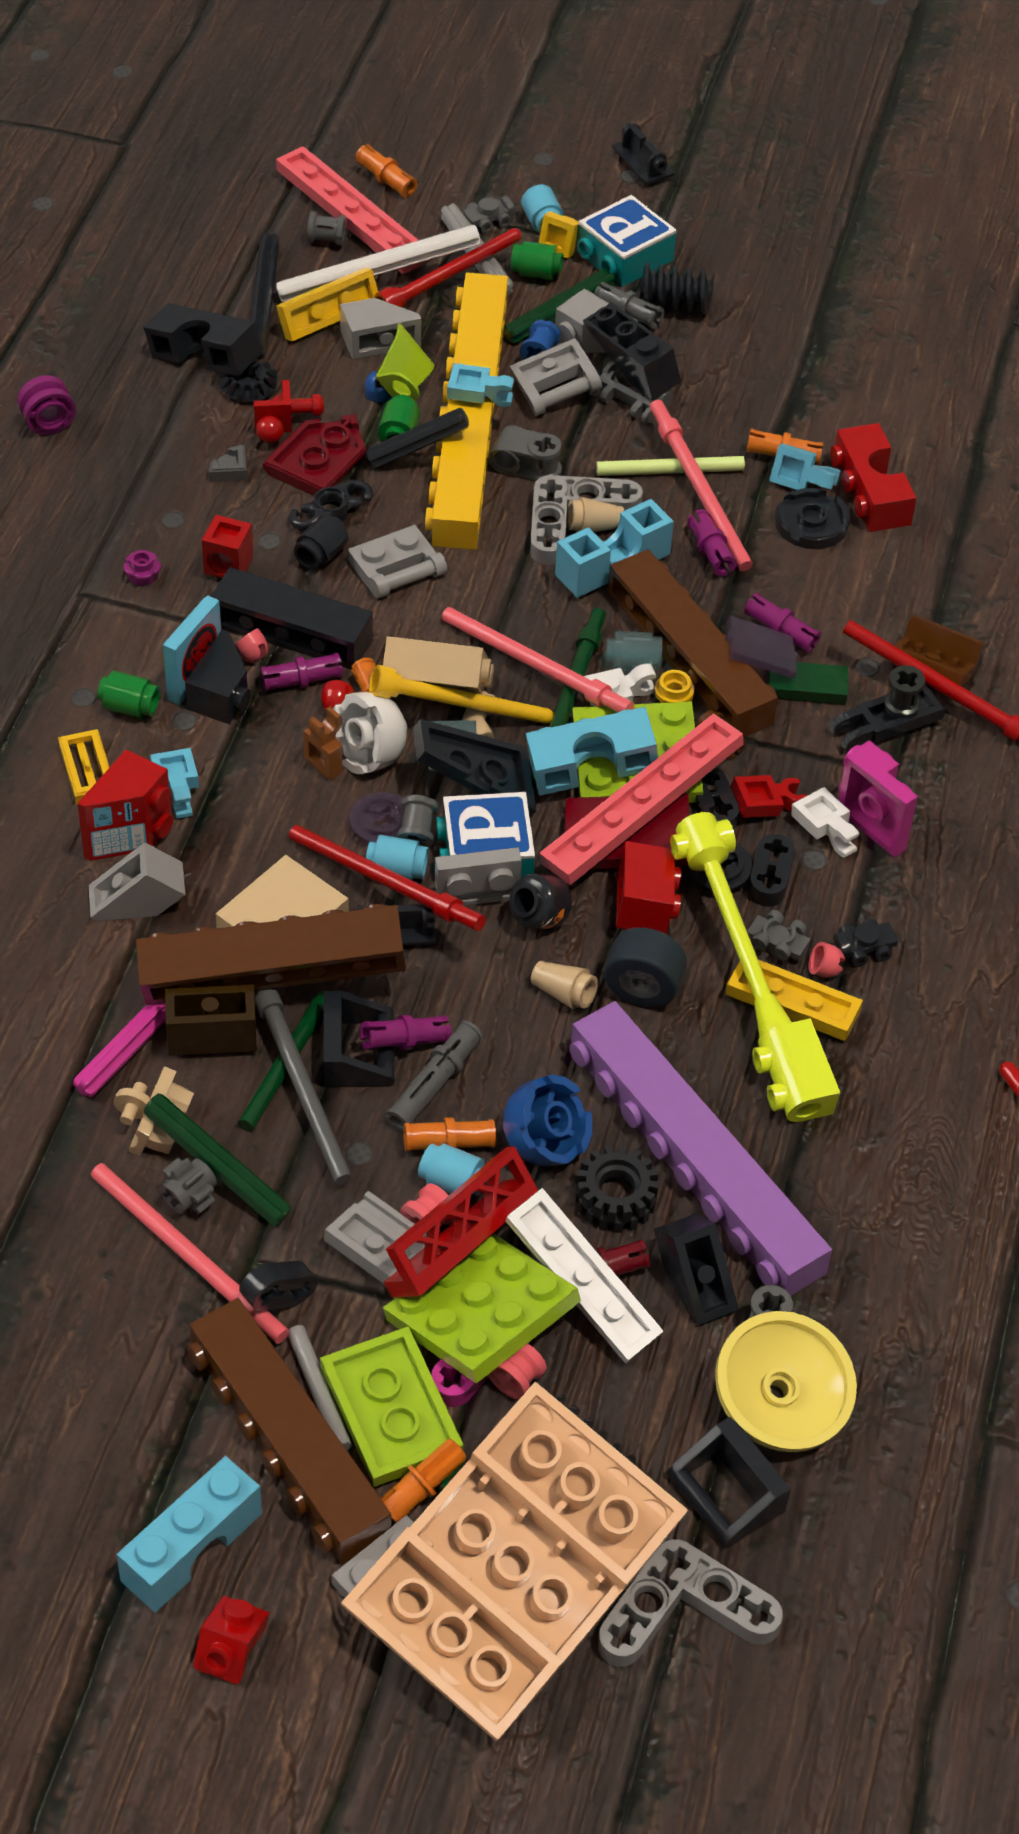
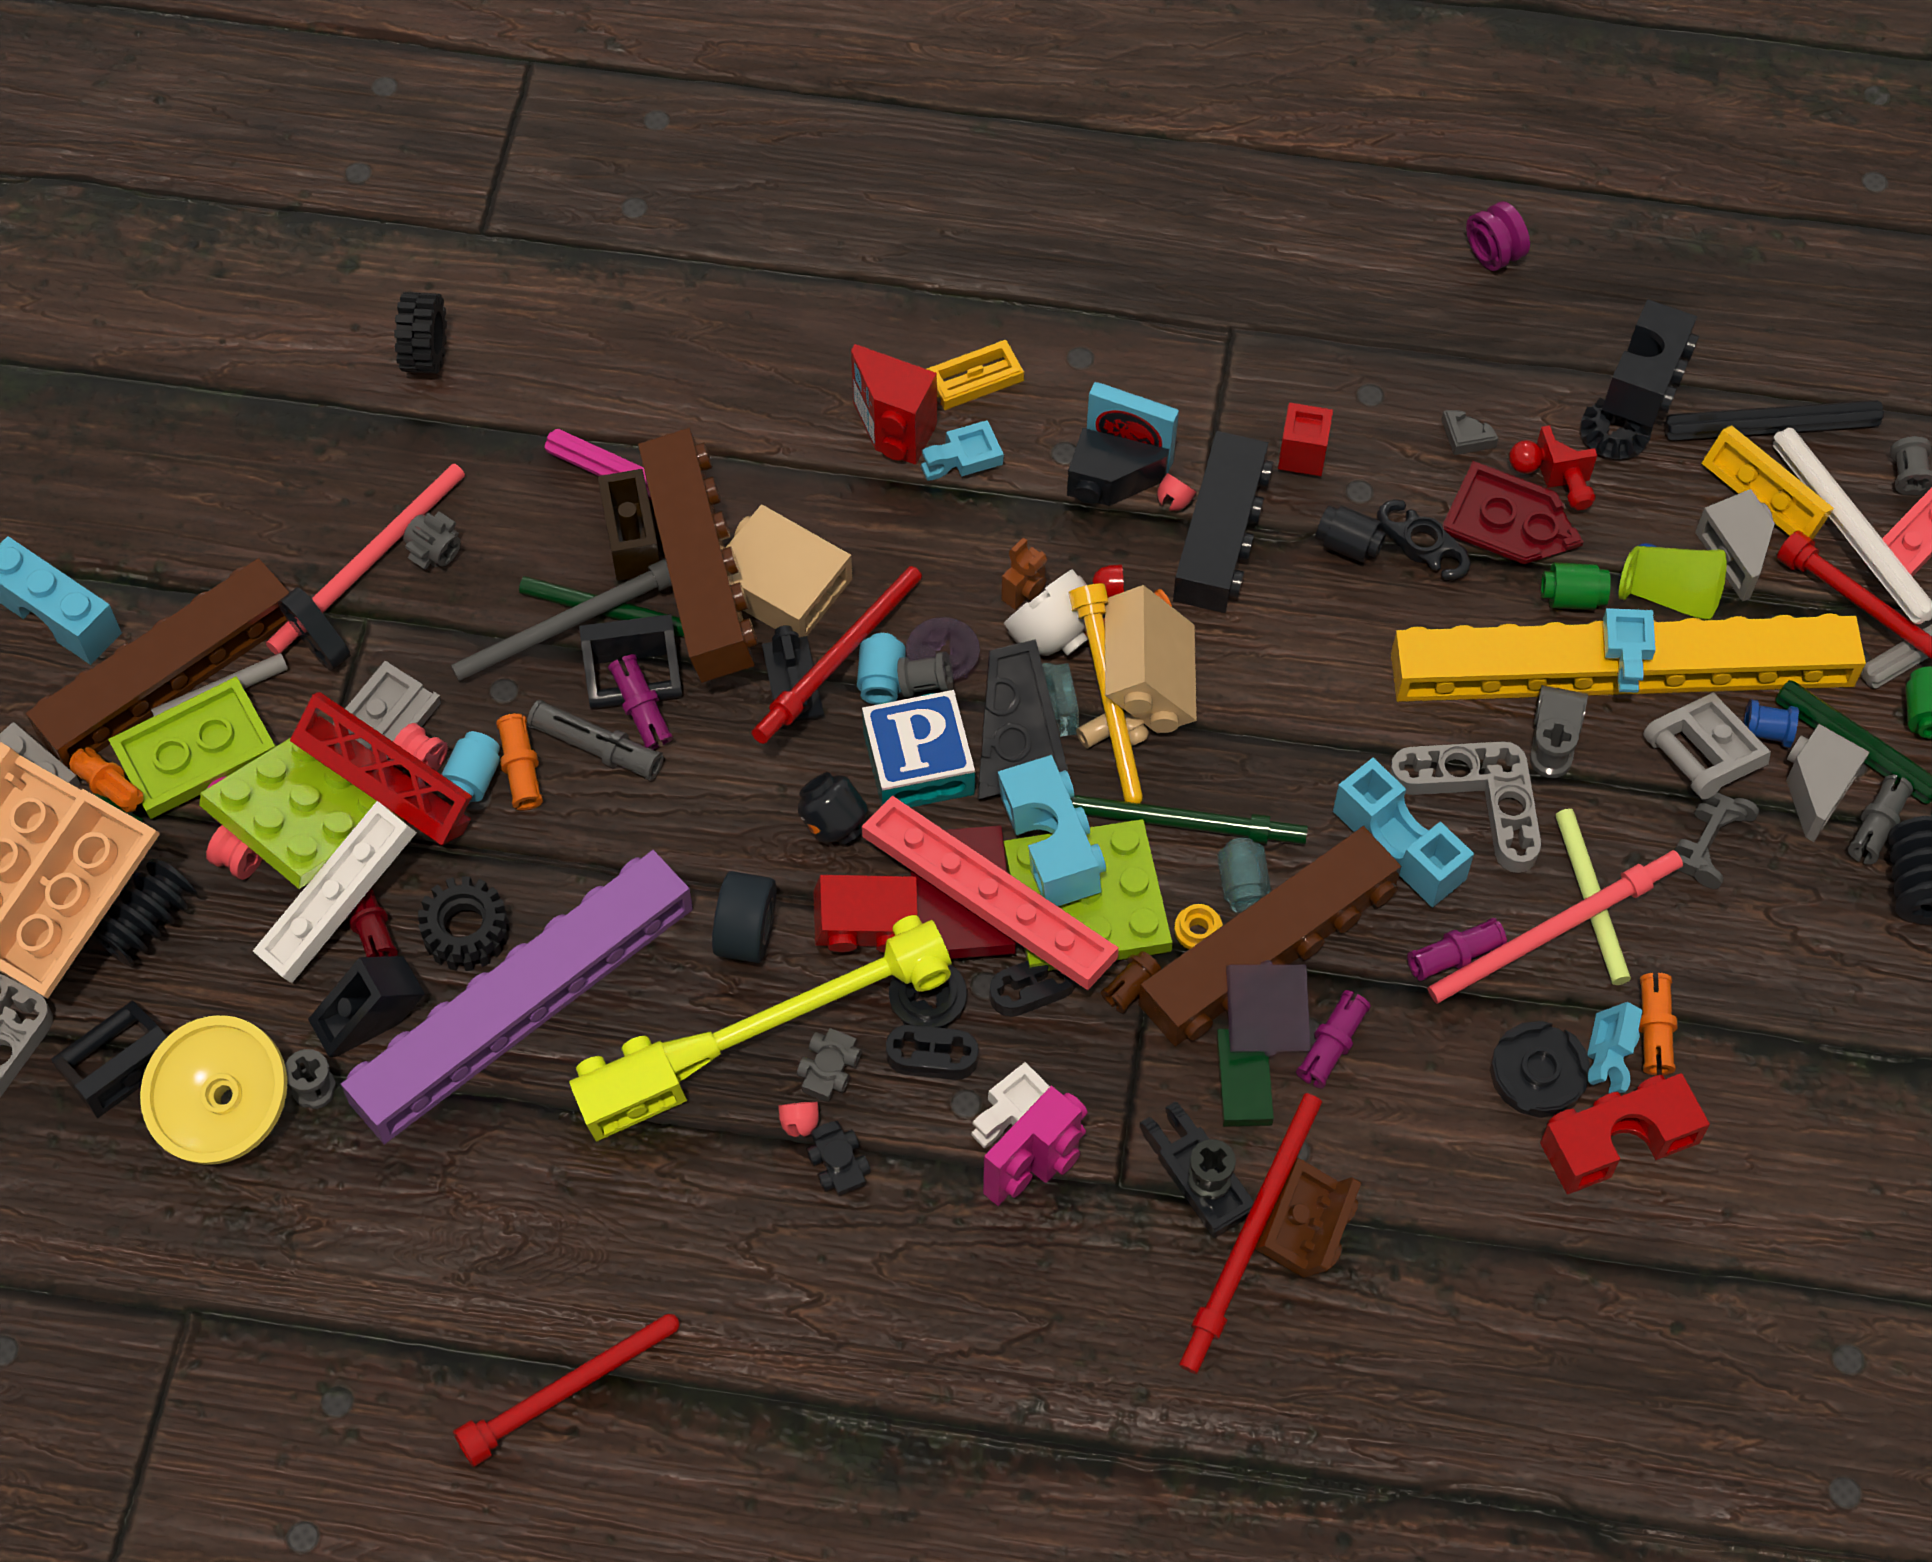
camera: 85 degrees right, 10 degrees up
(128, 694) = (1072, 388): green brick -> none
(132, 1103) = (538, 502): tan hips -> none
(137, 886) = (806, 442): light grey slope -> none
(142, 567) = (1277, 382): magenta plate -> none
(217, 1158) = (458, 556): dark green axle -> none
(301, 672) = (1146, 545): magenta pin -> none
(396, 561) = (1355, 609): light grey plate -> none
(418, 438) = (1535, 601): black axle -> none
(479, 875) = (857, 751): light grey plate -> none
(547, 1121) = (521, 839): blue cylinder -> none
(566, 983) = (730, 848): tan cone -> none
(592, 514) = (1469, 812): tan cone -> none
(594, 691) = (1160, 831): coral bar -> none
(635, 350) = (1761, 818): black slope -> none
(636, 683) = (1188, 862): white plate -> none
(762, 797) = (1038, 1031): red plate -> none
(802, 999) = (738, 1091): yellow plate -> none

